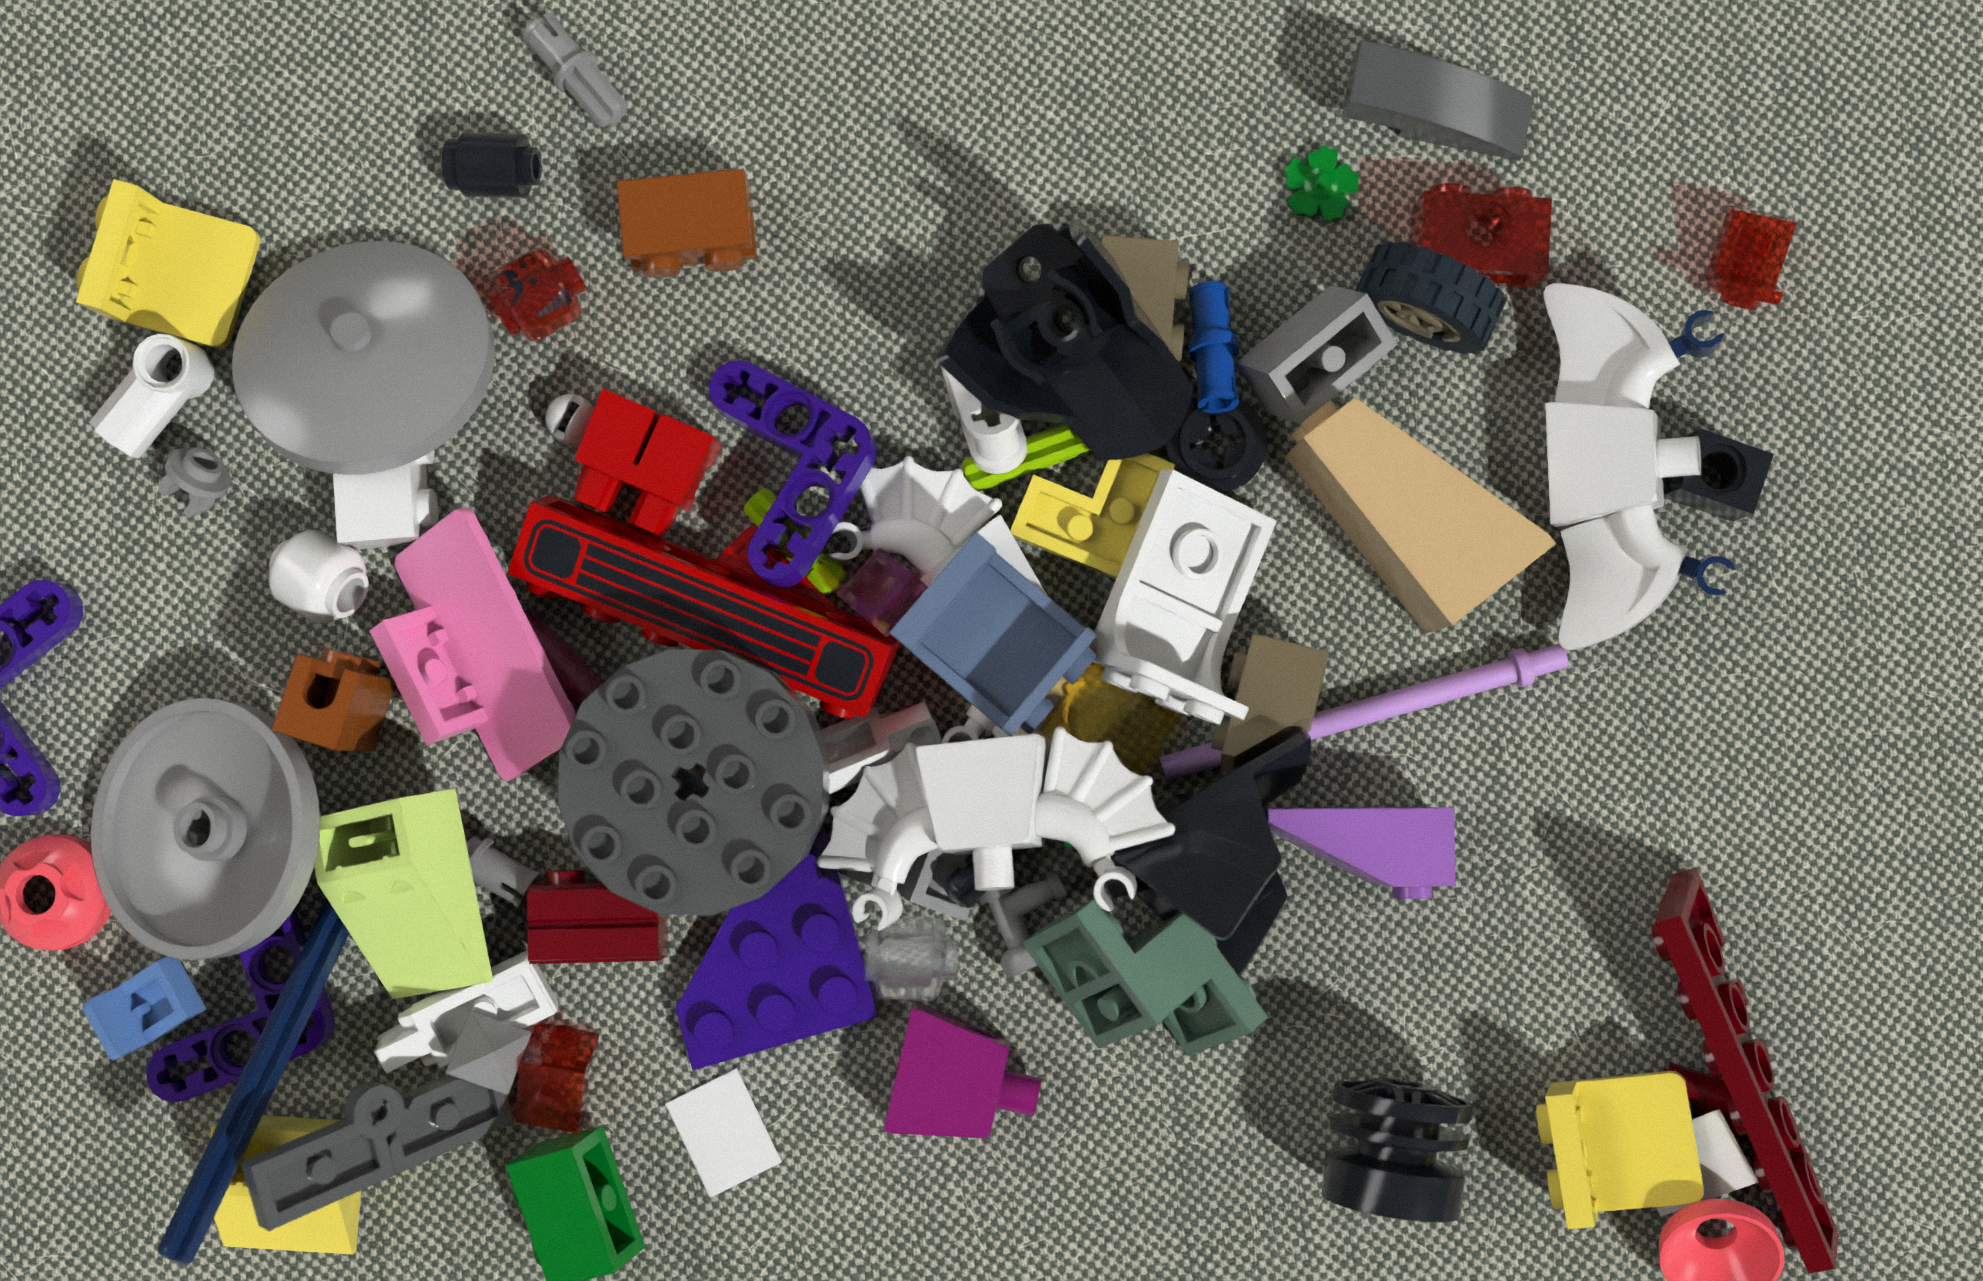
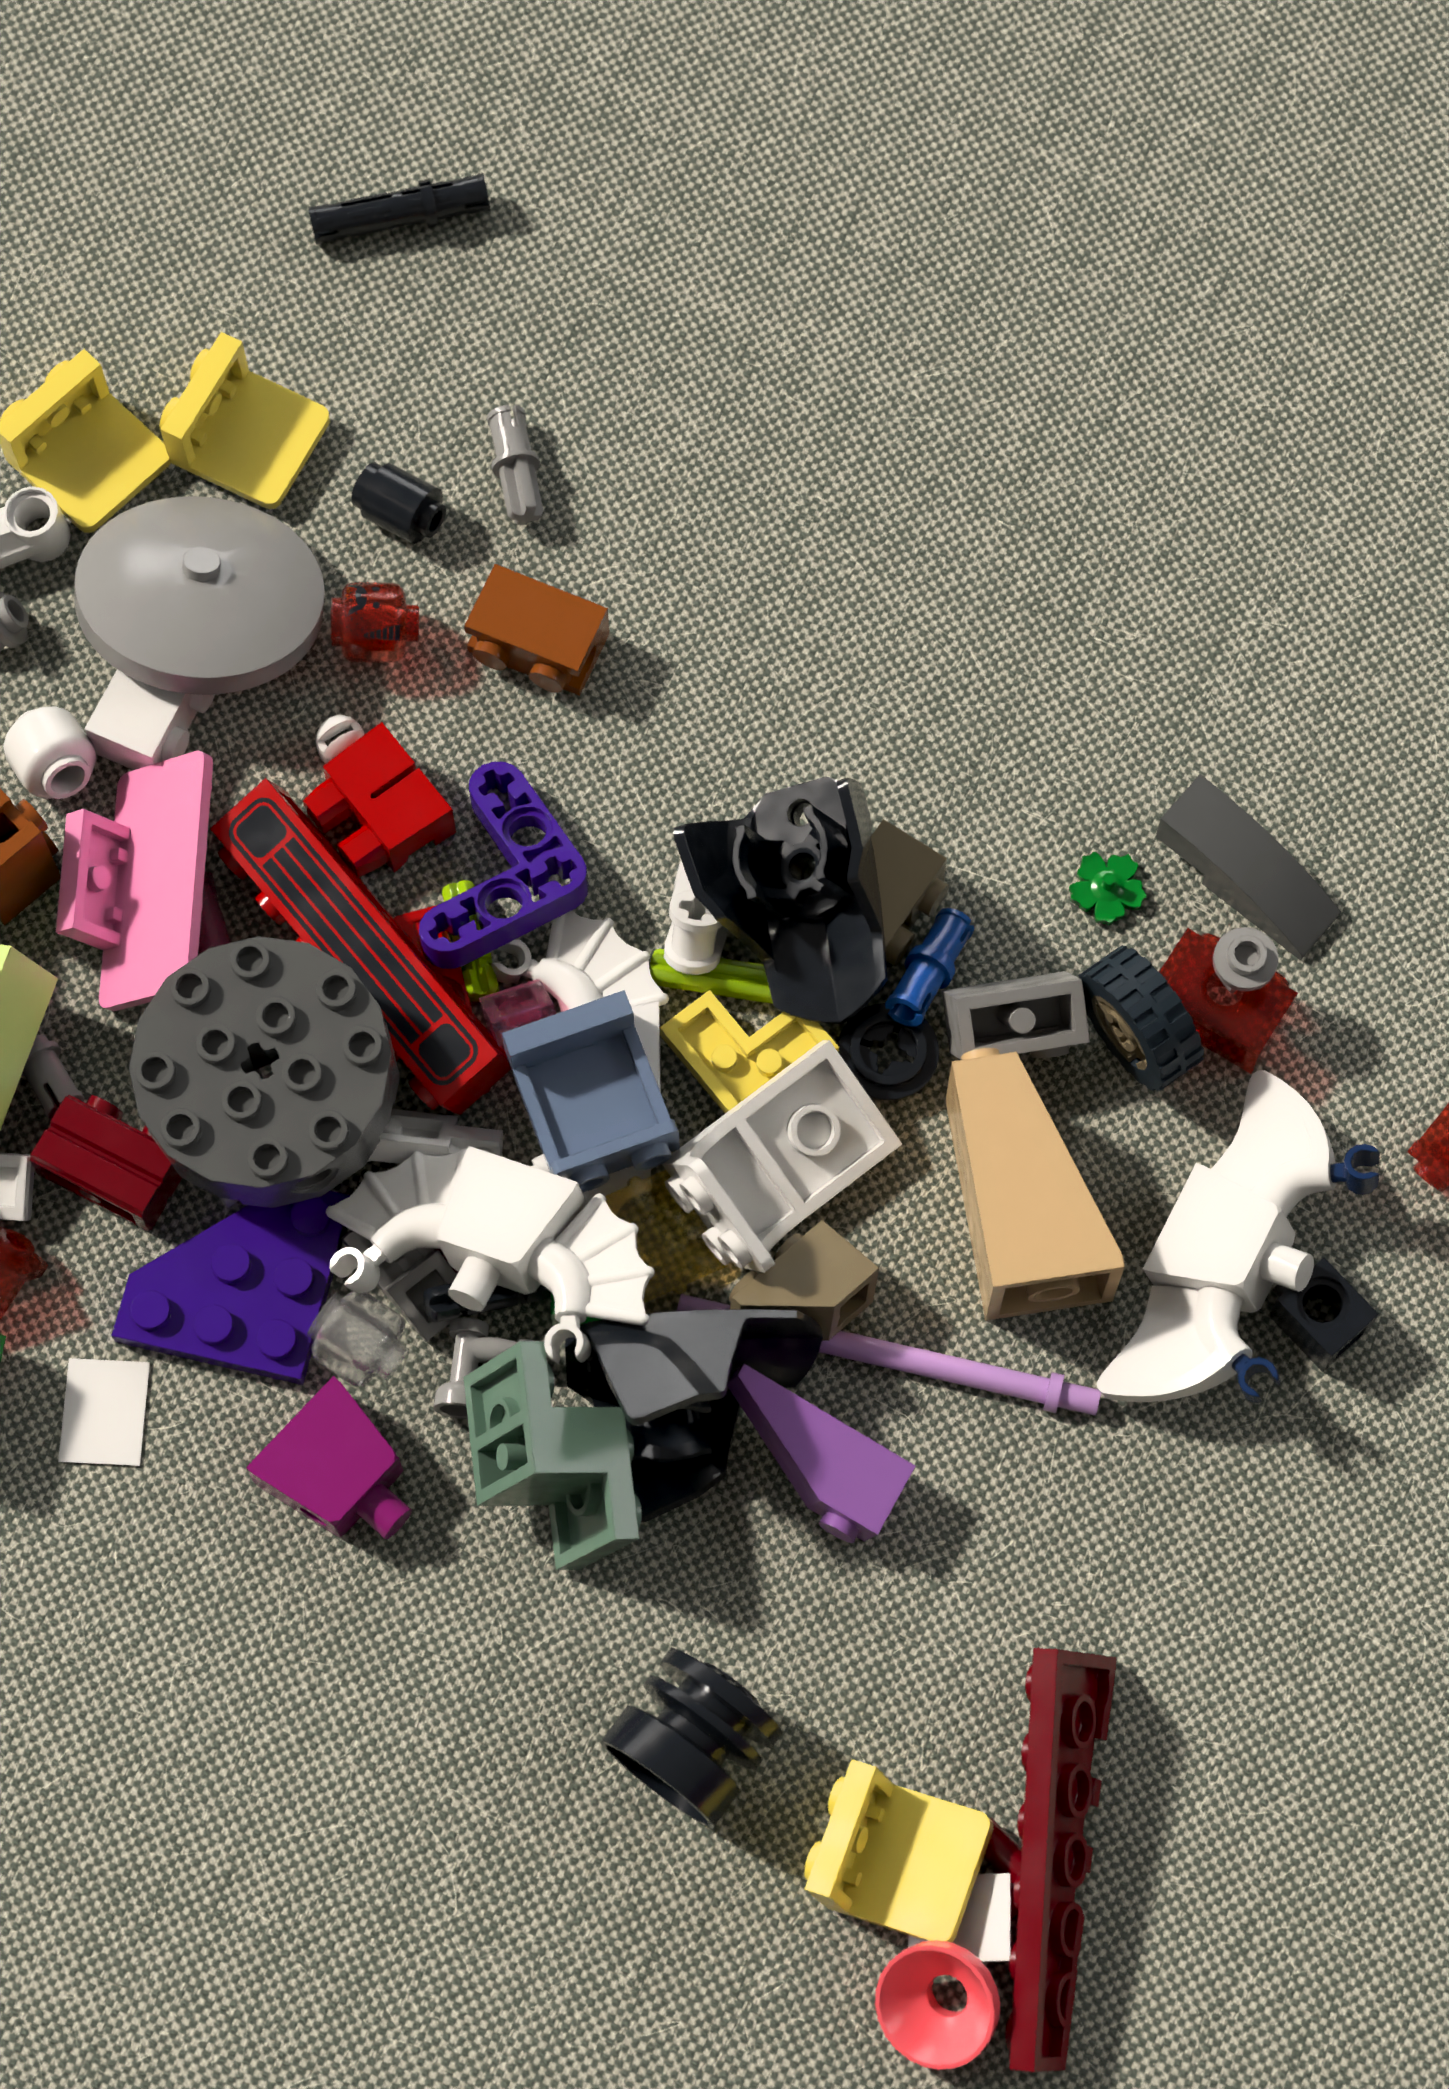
camera: 30 degrees right, 15 degrees down
(304, 170) = (241, 426): none -> light yellow bracket
(1502, 196) = (1245, 959): none -> light grey plate

